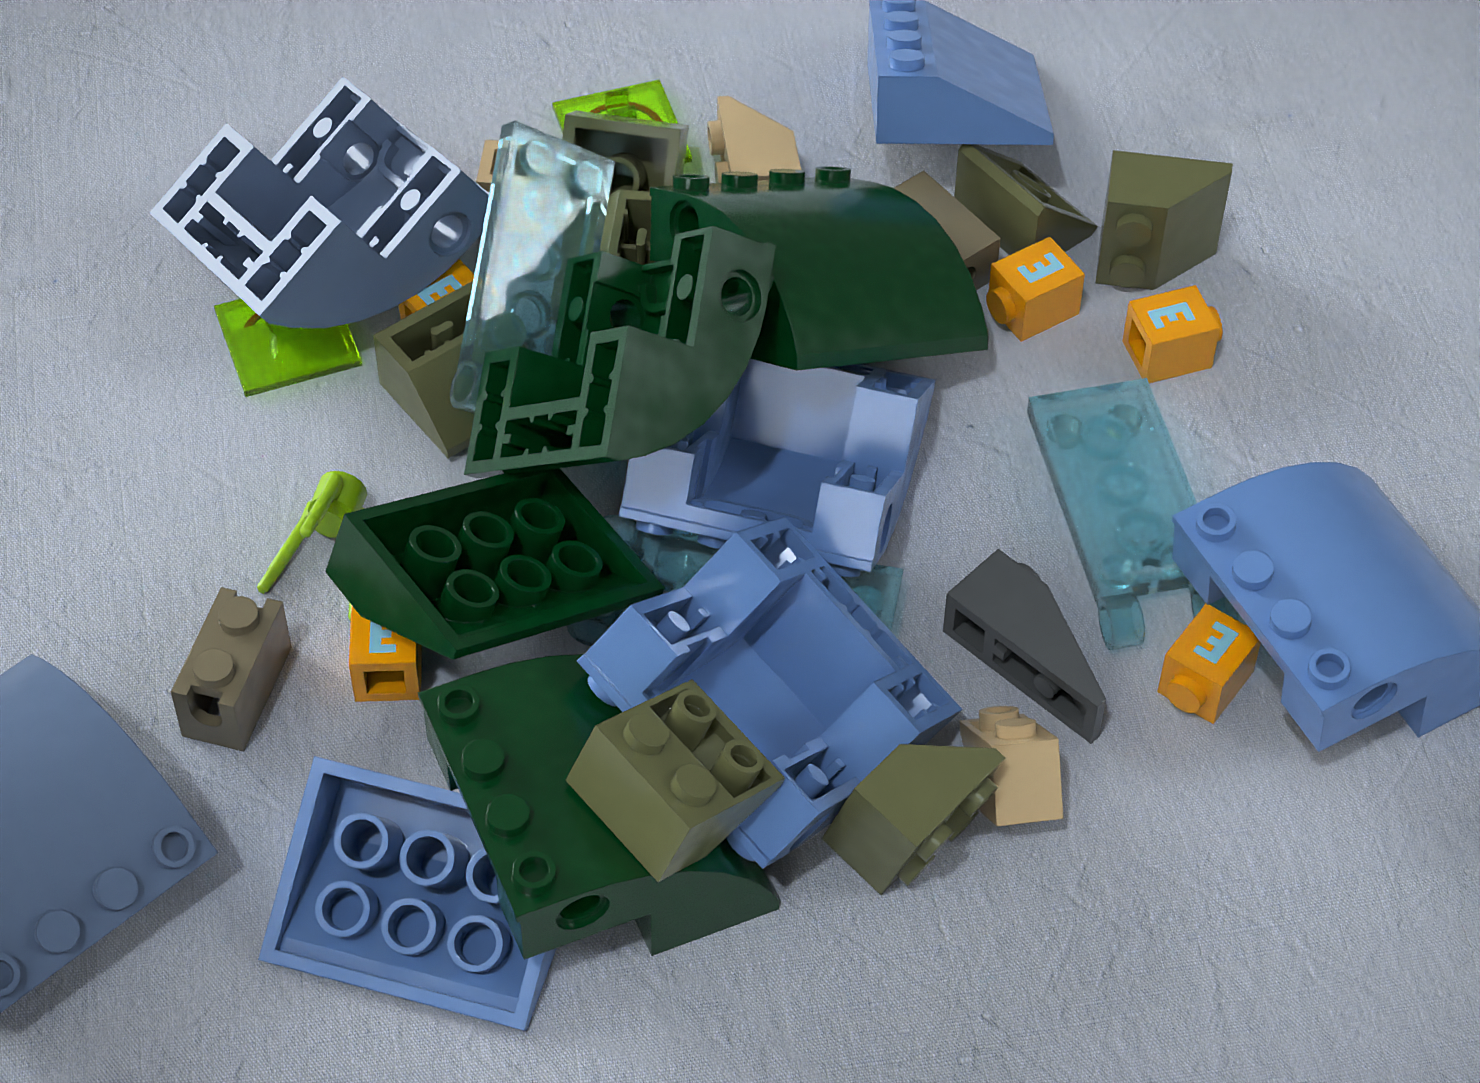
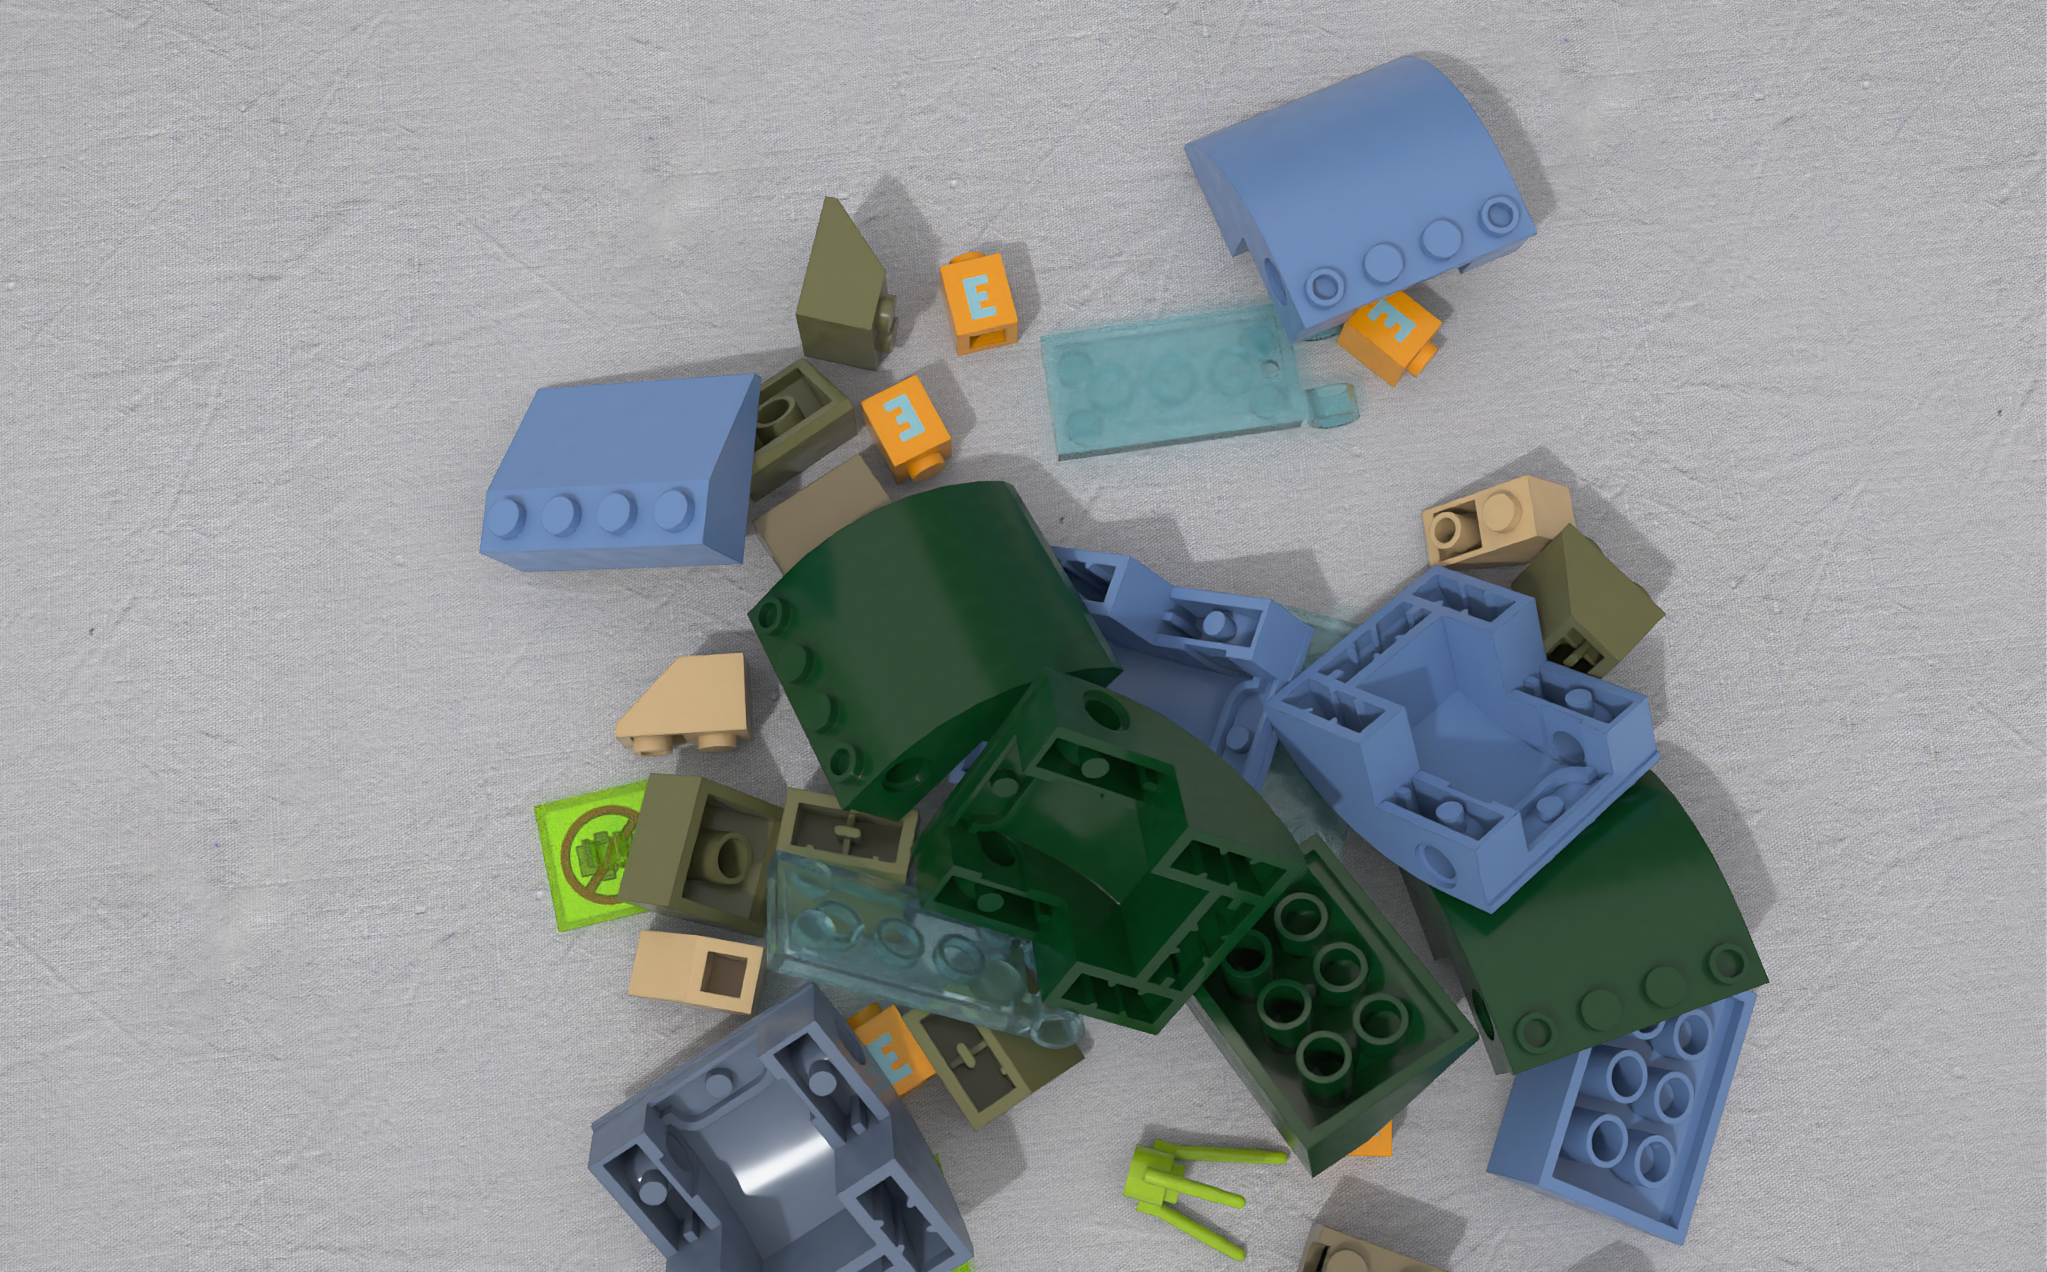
camera: 90 degrees left, 25 degrees up
(672, 778) = (1629, 824): olive slope -> none
(1019, 632) = (1348, 495): dark grey slope -> none

